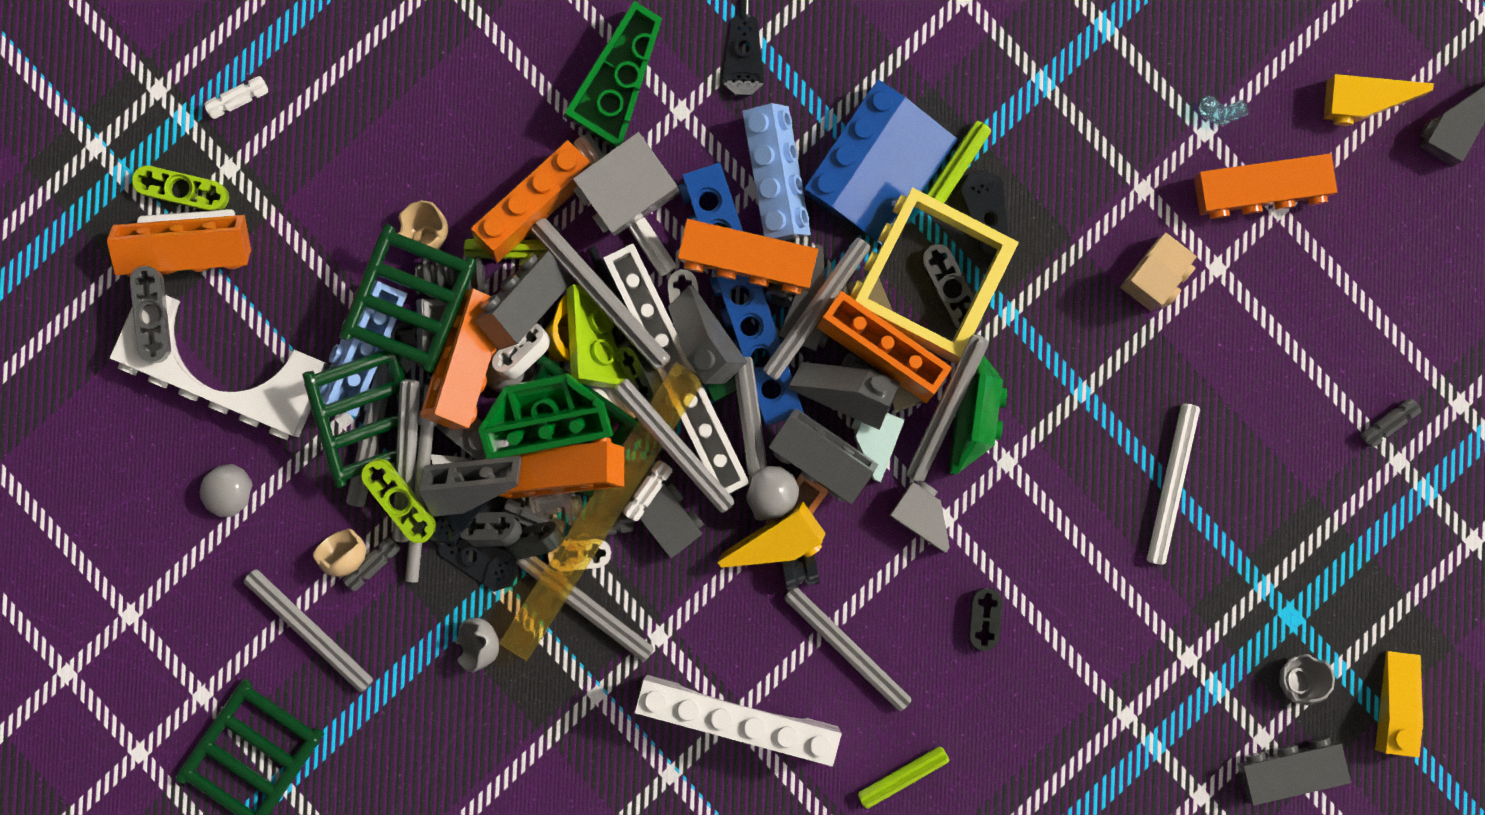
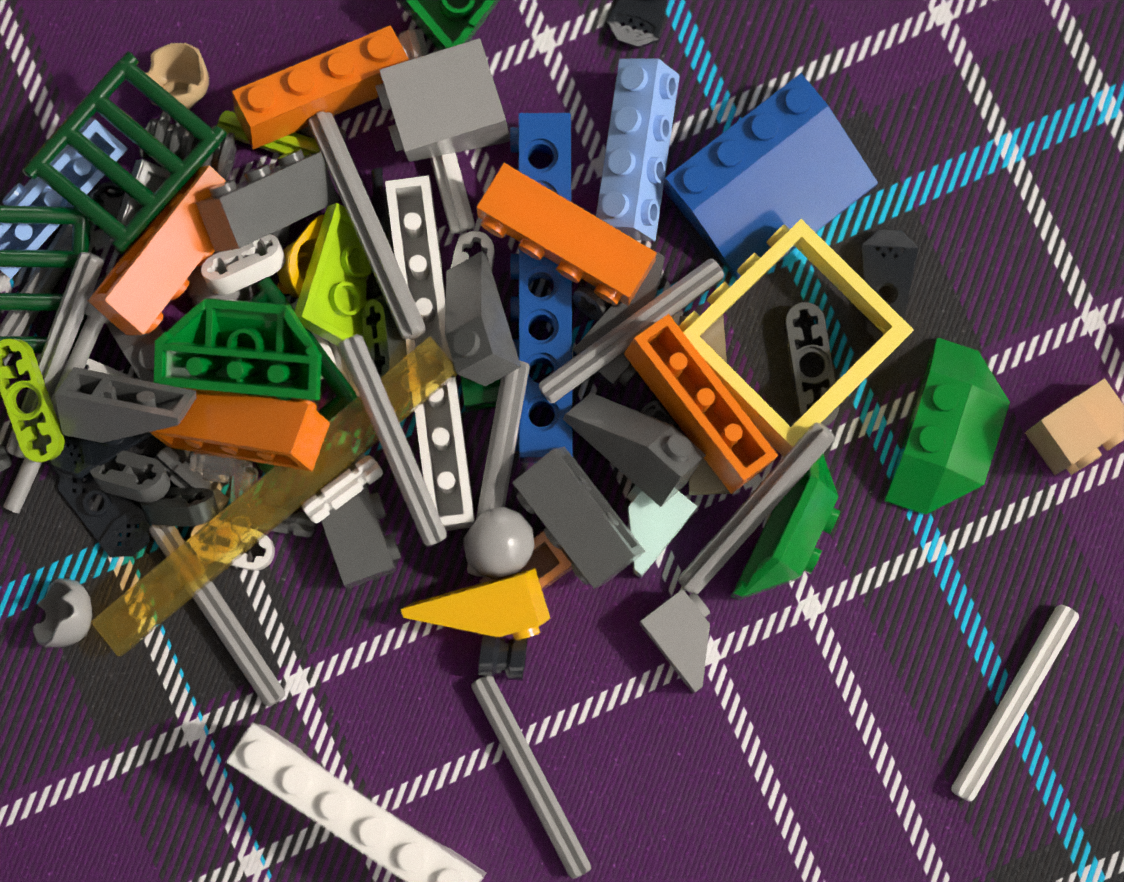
camera: 20 degrees right, 5 degrees down
(959, 161) = (873, 210): lime axle -> none
(993, 619) = (709, 791): pearl dark grey beam -> none
(1065, 304) = (949, 431): none -> green wedge

